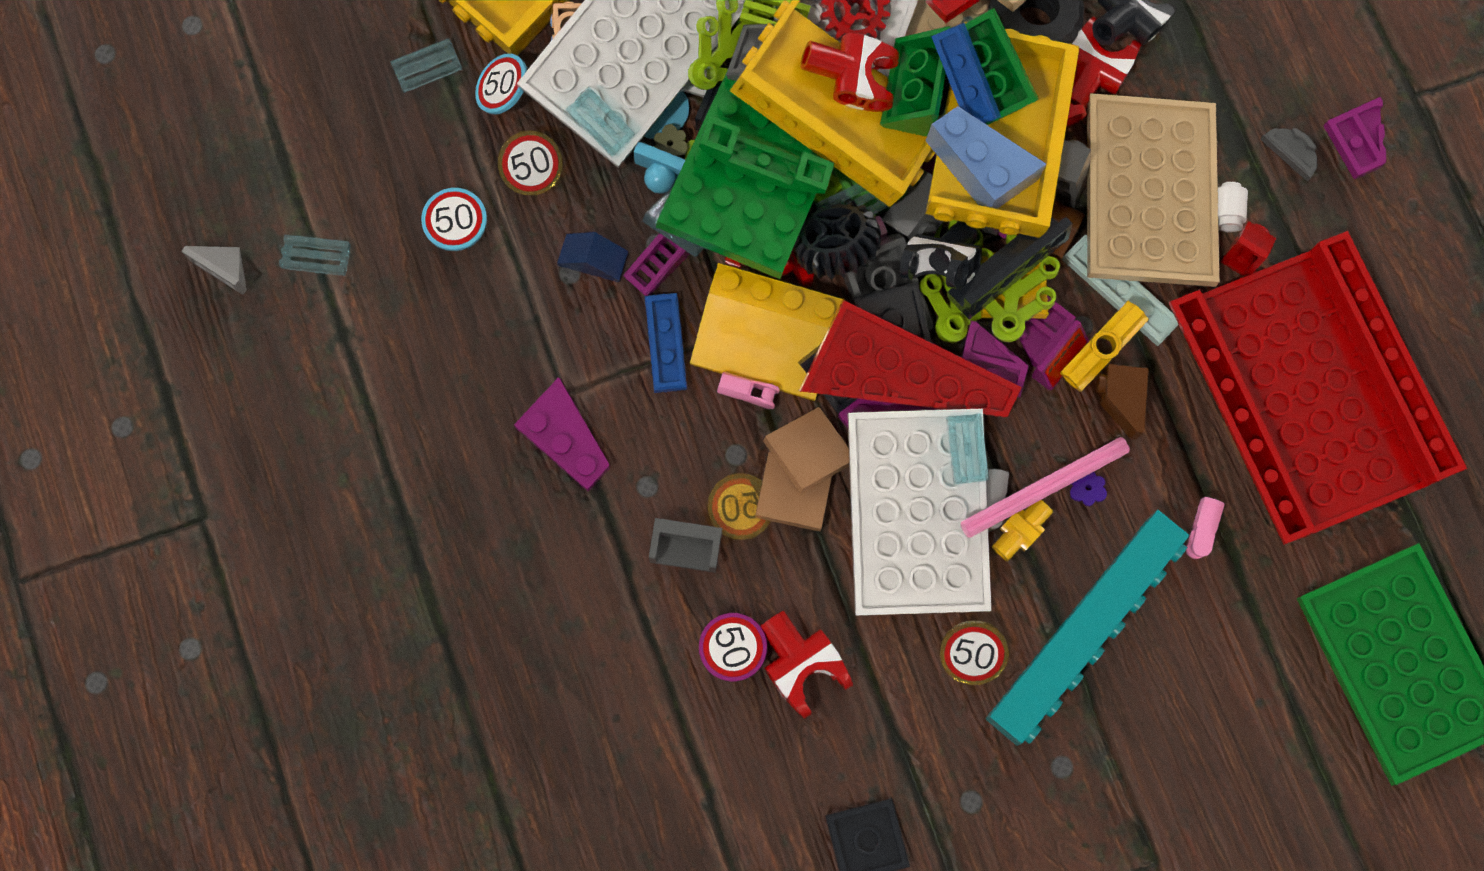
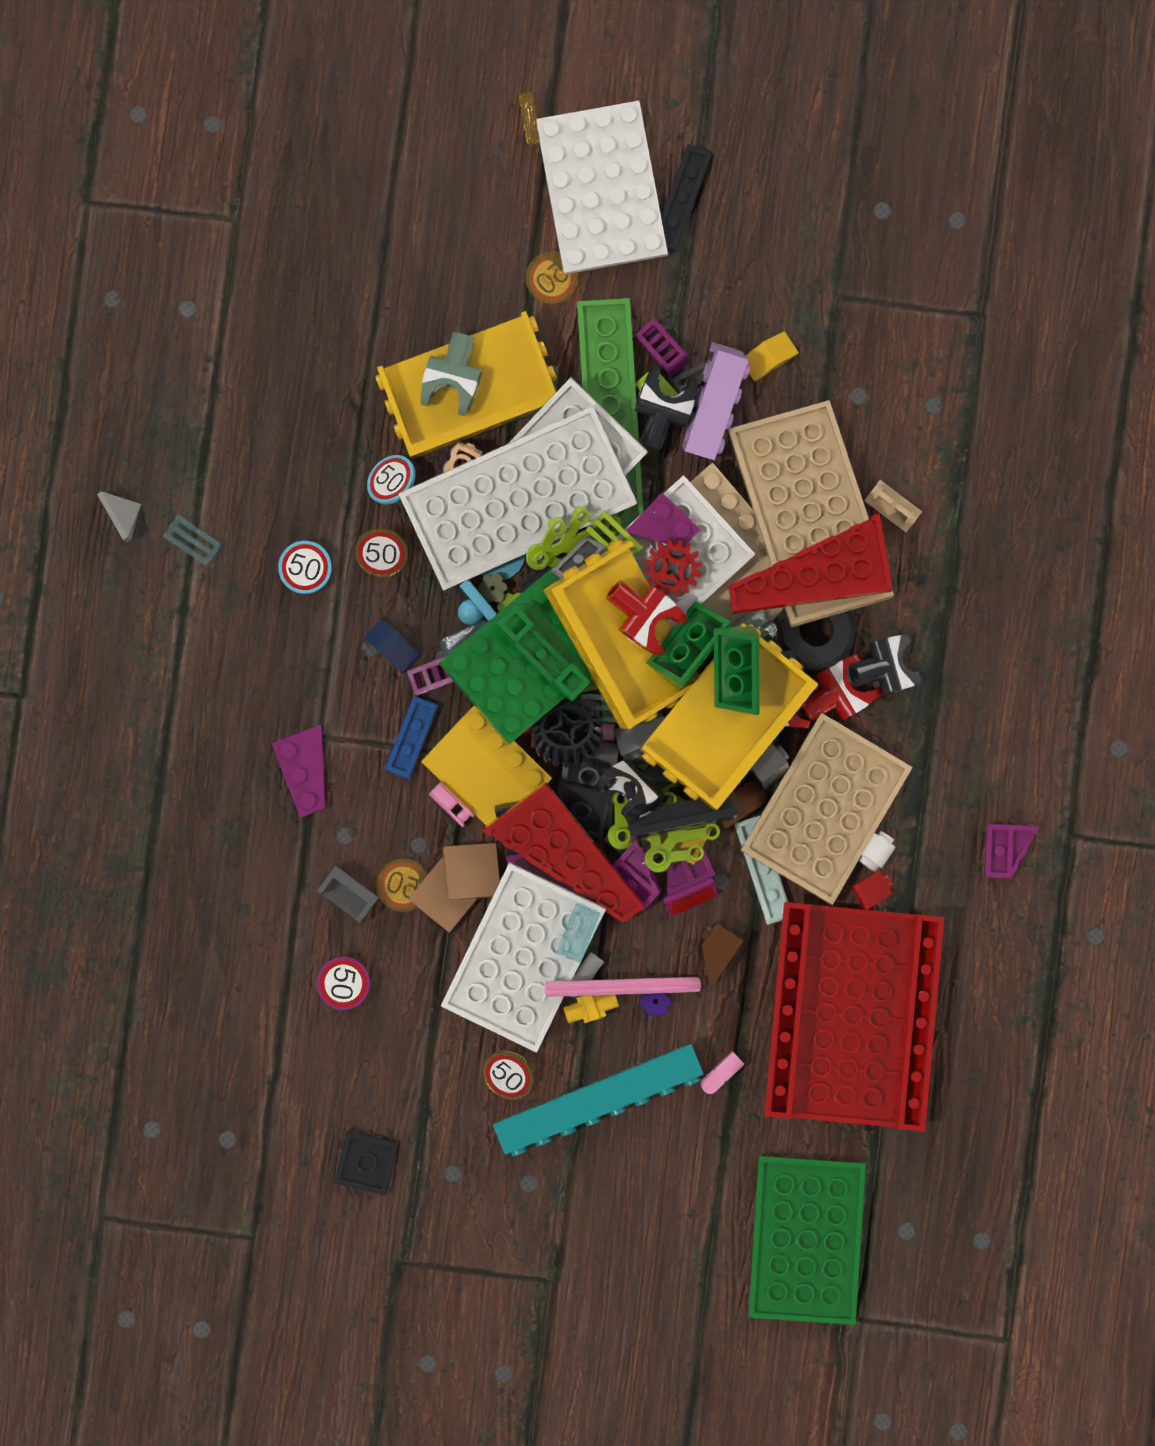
camera: 30 degrees right, 10 degrees up
(423, 54) = (344, 422): clear light blue tile -> none
(581, 102) = (451, 574): clear light blue tile -> none
(799, 660) = (385, 1016): red connector -> none
(965, 73) = (719, 667): blue tile -> none
(982, 158) = (698, 735): medium blue wedge -> none
(1118, 332) = (707, 913): yellow piece -> none
(1293, 148) = (954, 831): dark grey tile -> none

